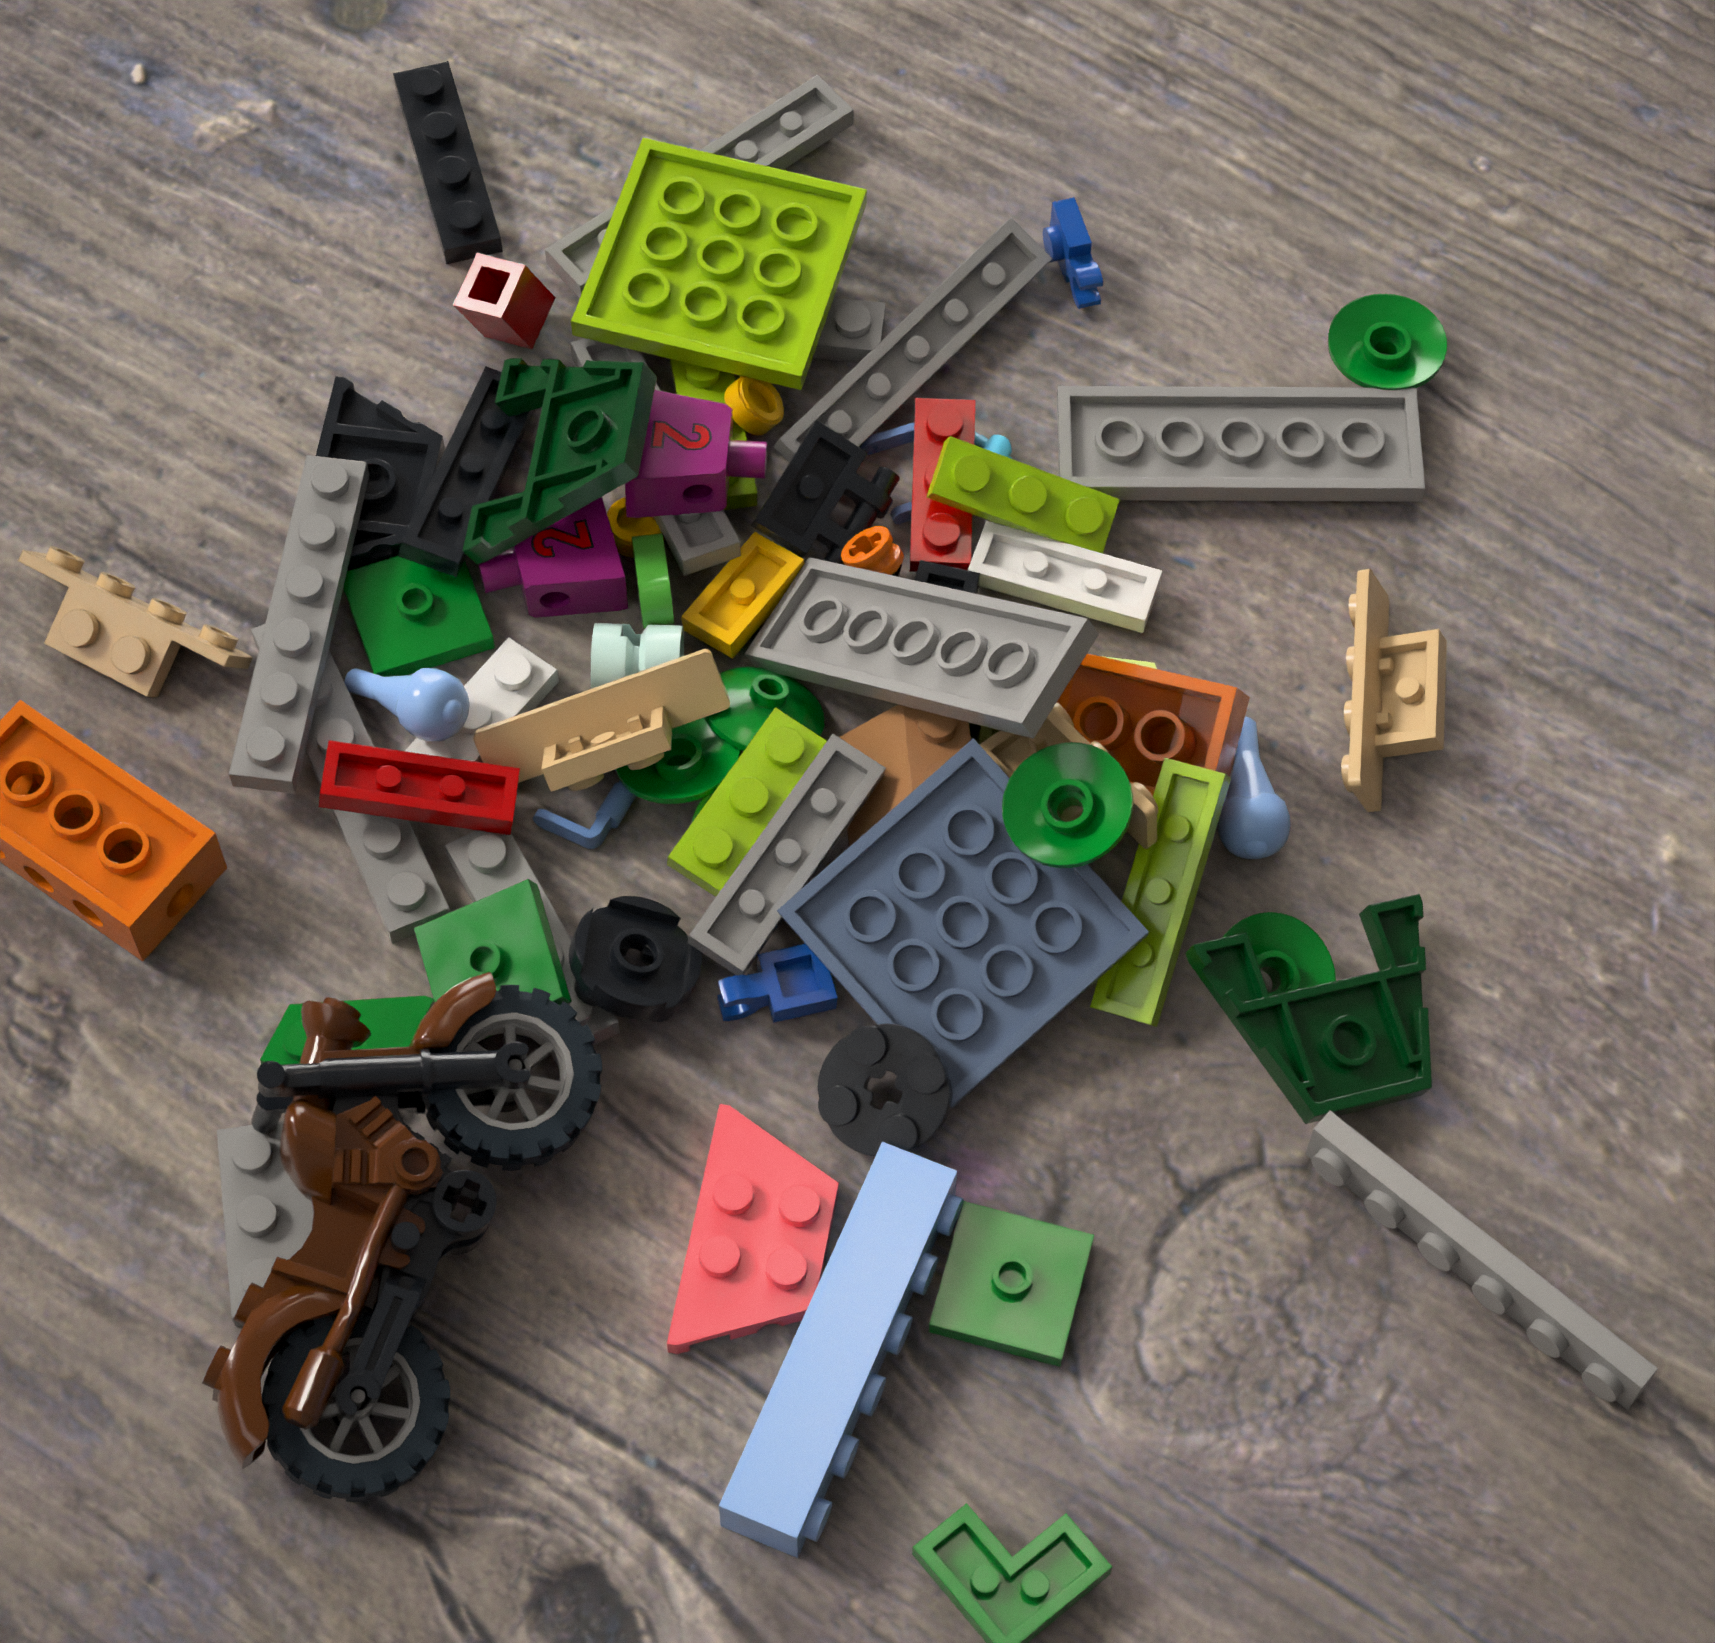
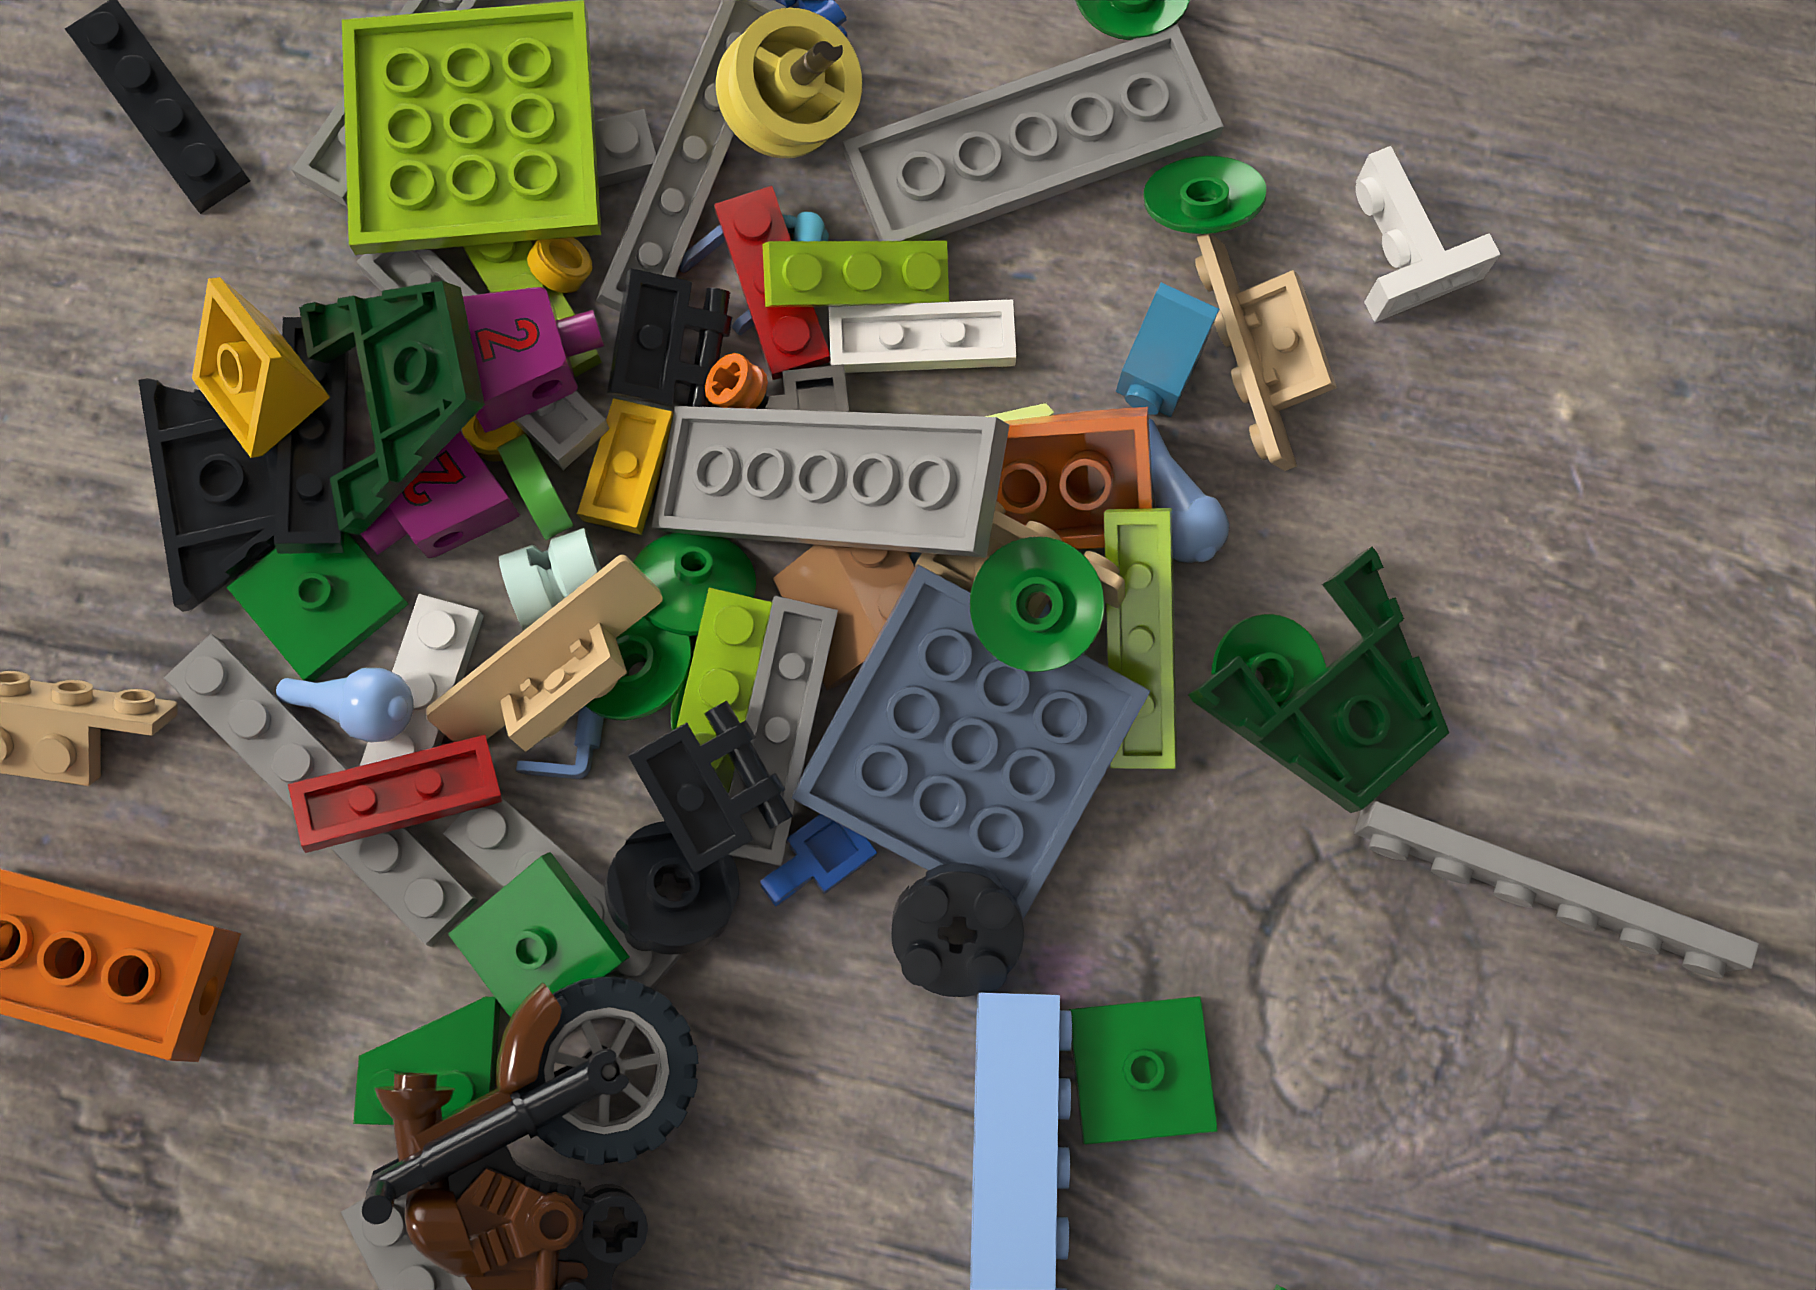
camera: 20 degrees left, 15 degrees up
(299, 625) = (209, 662): light grey plate -> none
(439, 396) = (251, 371): none -> yellow slope
(504, 301) = (273, 241): red brick -> none
(686, 869) = (693, 798): none -> black plate
(753, 1237) = (889, 1118): coral wing -> none
(1026, 319) = (789, 83): none -> light yellow wheel
(1289, 657) = (1166, 350): none -> dark azure slope
(1382, 541) = (1205, 194): none -> green dish
(1567, 674) = (1412, 242): none -> white bracket

